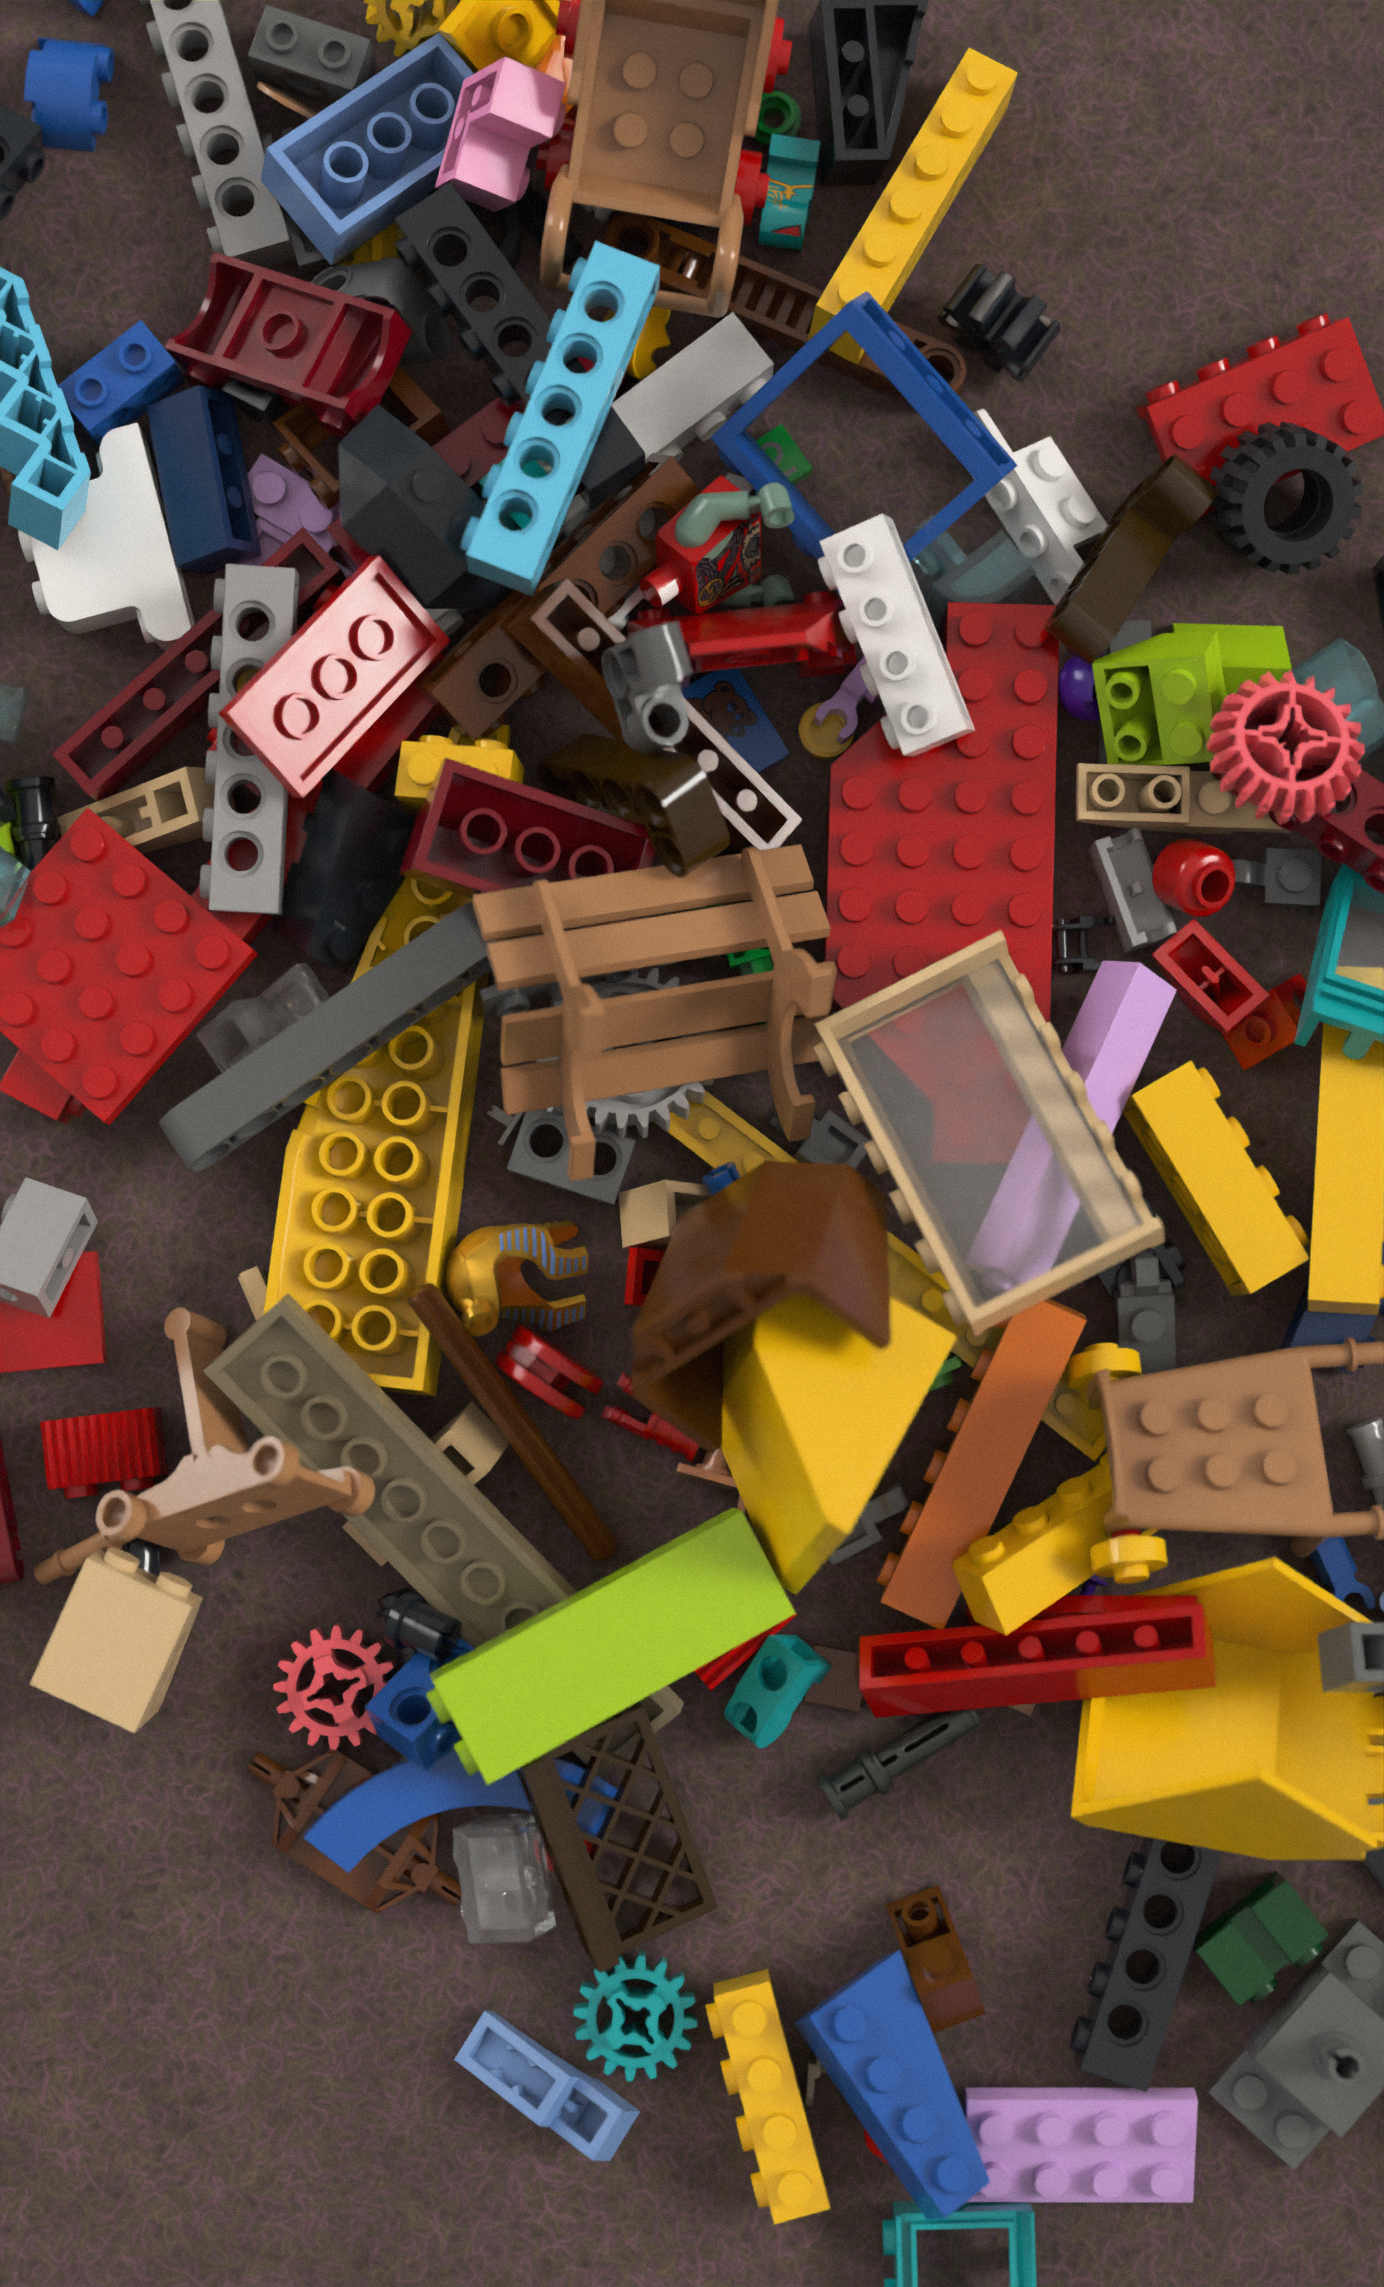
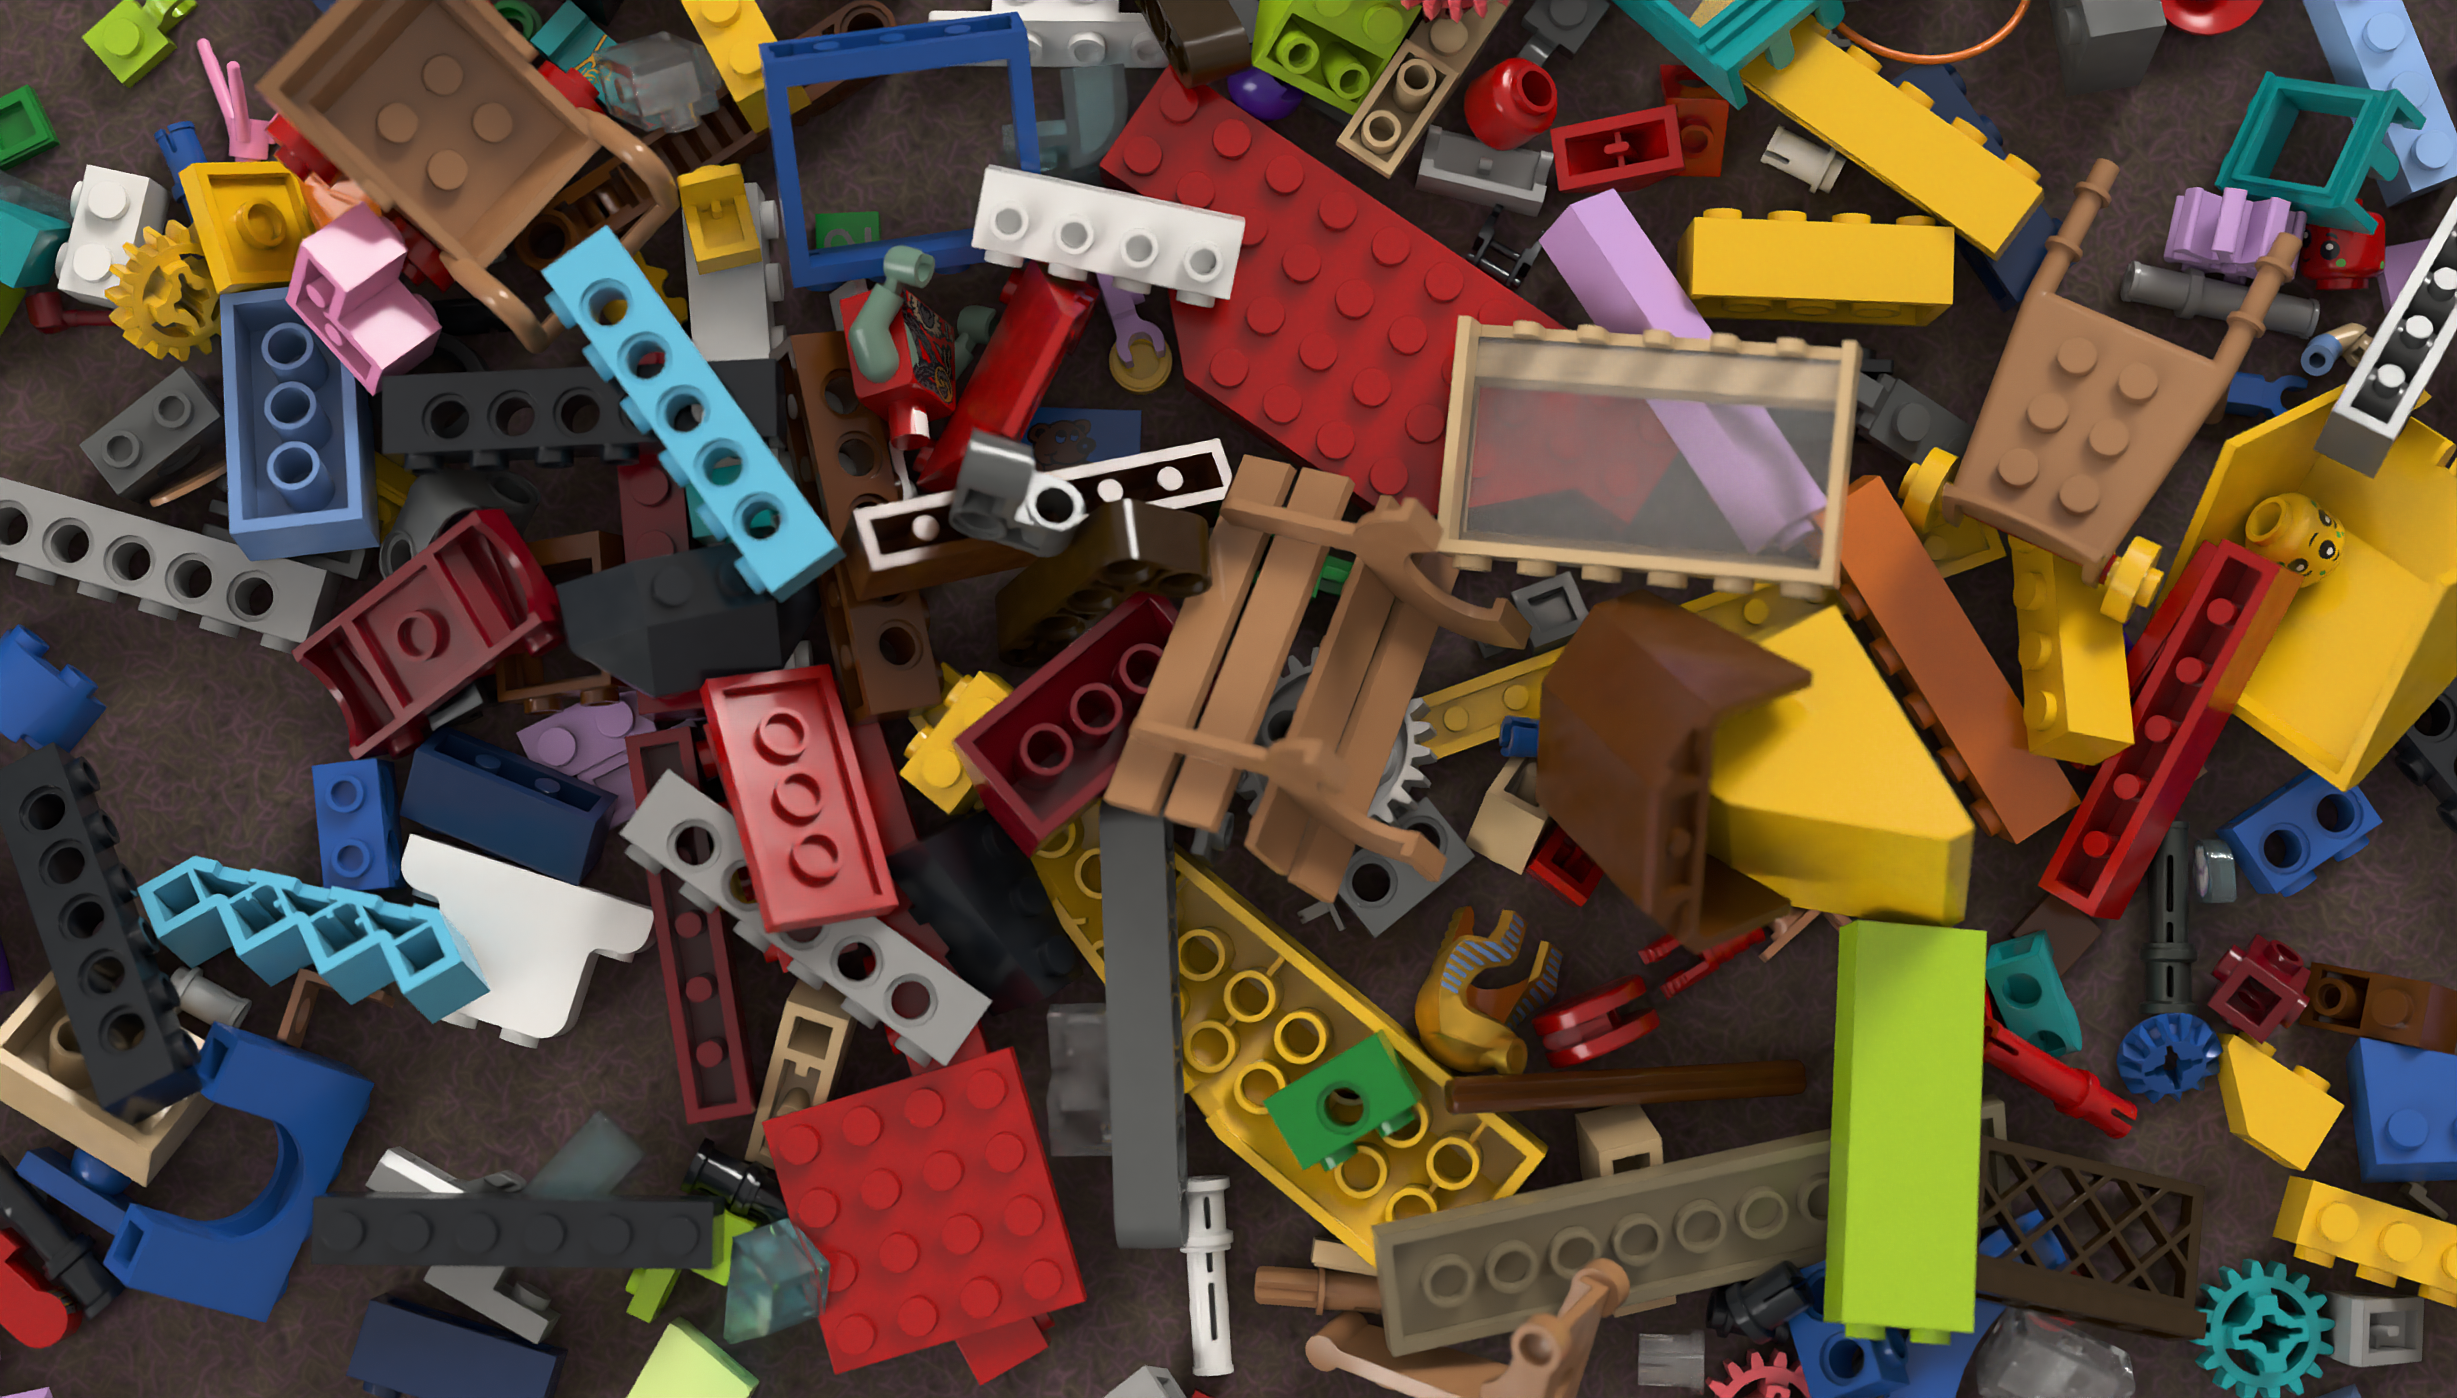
camera: 60 degrees left, 0 degrees up
(130, 1246) = (1207, 1275): none -> white pin
(221, 1289) = (1317, 1289): none -> medium nougat axle
(336, 1588) = (1672, 1360): none -> clear bush
(344, 1192) = (1305, 1112): none -> green brick
(692, 2102) = (2374, 1327): none -> light grey slope
(724, 1762) = (2071, 1089): none -> red pin
(726, 351) = (718, 218): none -> yellow bracket
(798, 243) = (658, 82): none -> clear brick
(808, 1917) = (2272, 1106): none -> yellow slope
(819, 1823) = (2144, 1052): none -> blue gear
(890, 1853) = (2264, 1004): none -> dark red brick
(957, 1766) = (2213, 871): none -> clear light blue tile
(1036, 1799) = (2293, 816): none -> blue brick
(1245, 1666) = (2296, 535): none -> yellow head
(1296, 1123) = (1803, 160): none -> white pin

